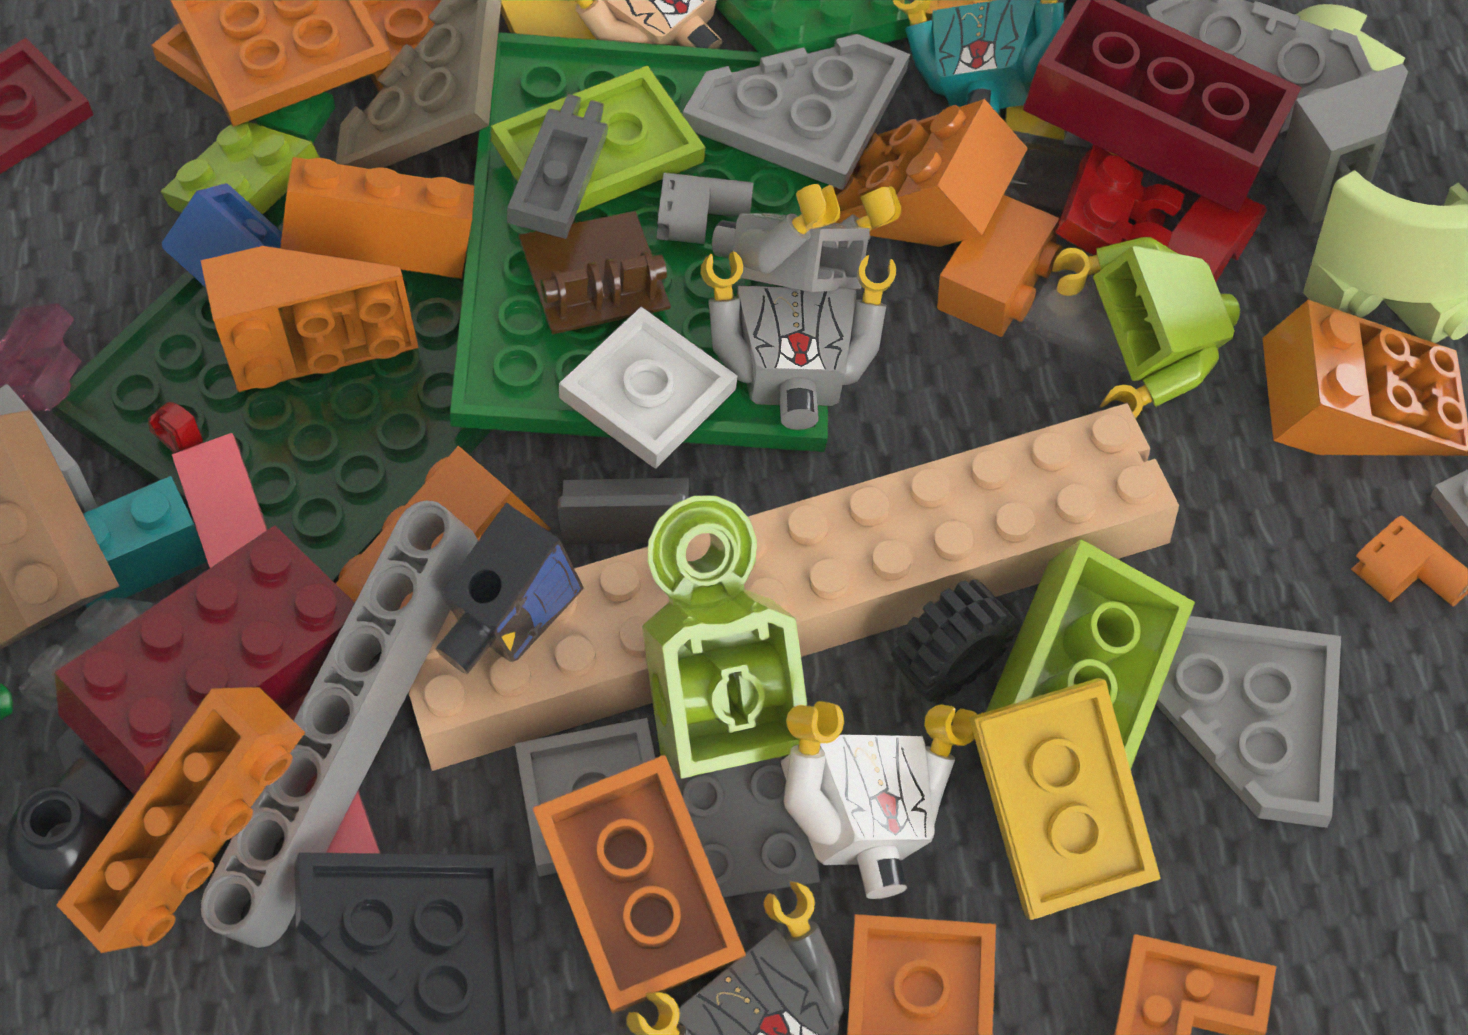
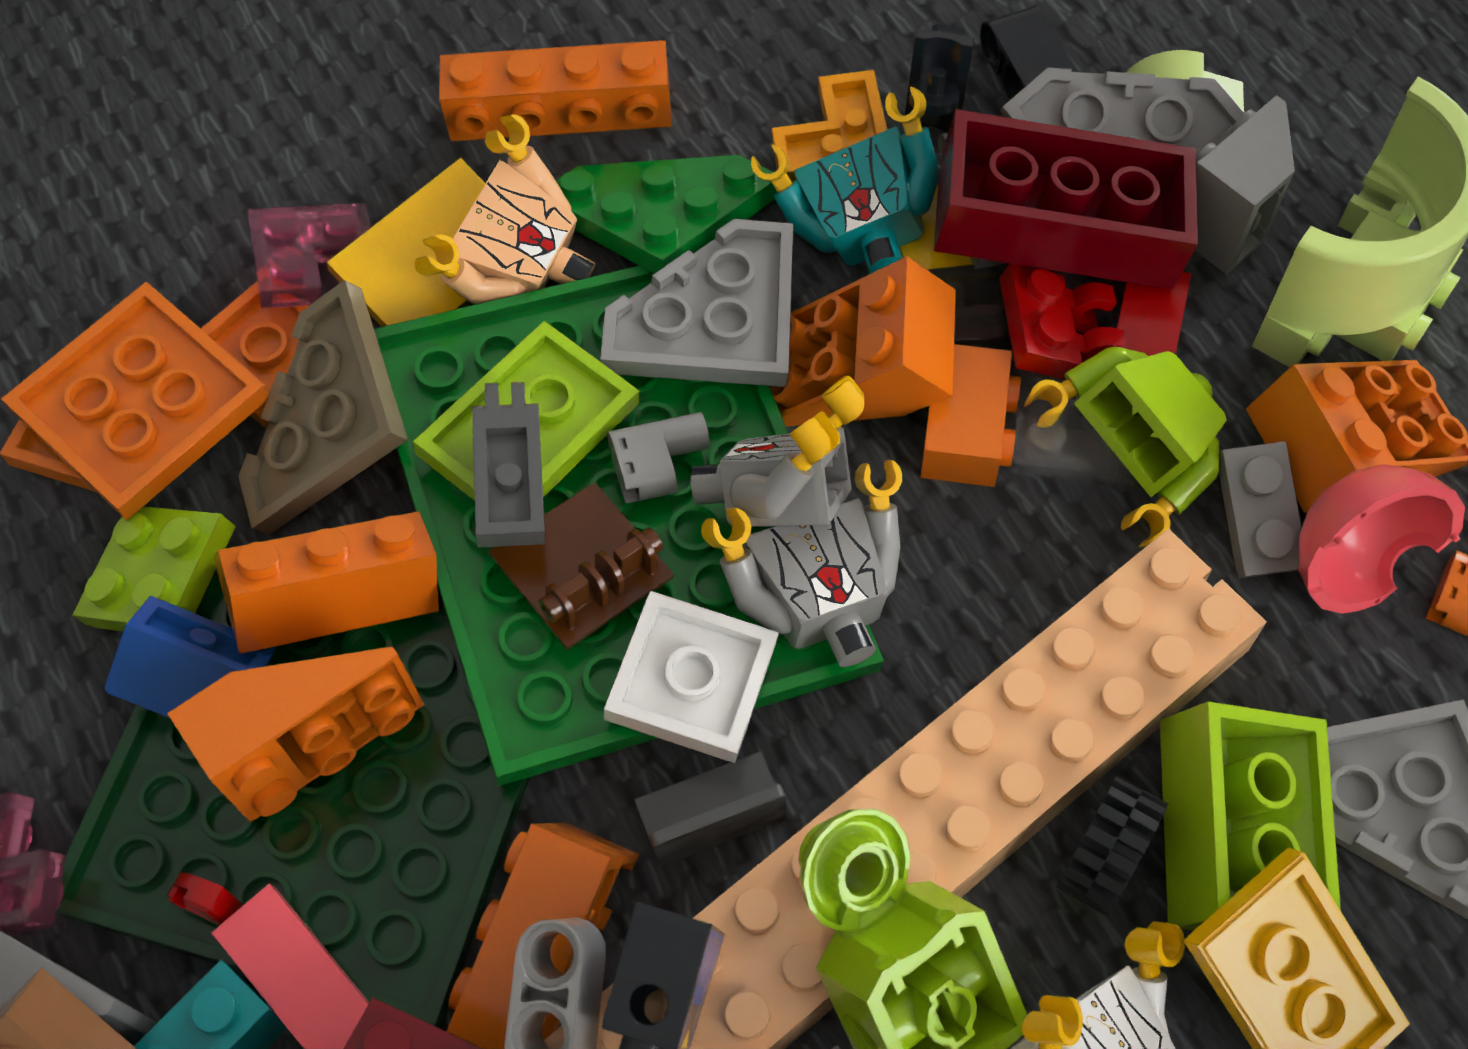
camera: 20 degrees left, 5 degrees up
(302, 118) = (194, 487): green plate -> none
(1233, 425) = (1260, 508): none -> light grey plate
(1312, 465) = (1365, 526): none -> coral cylinder

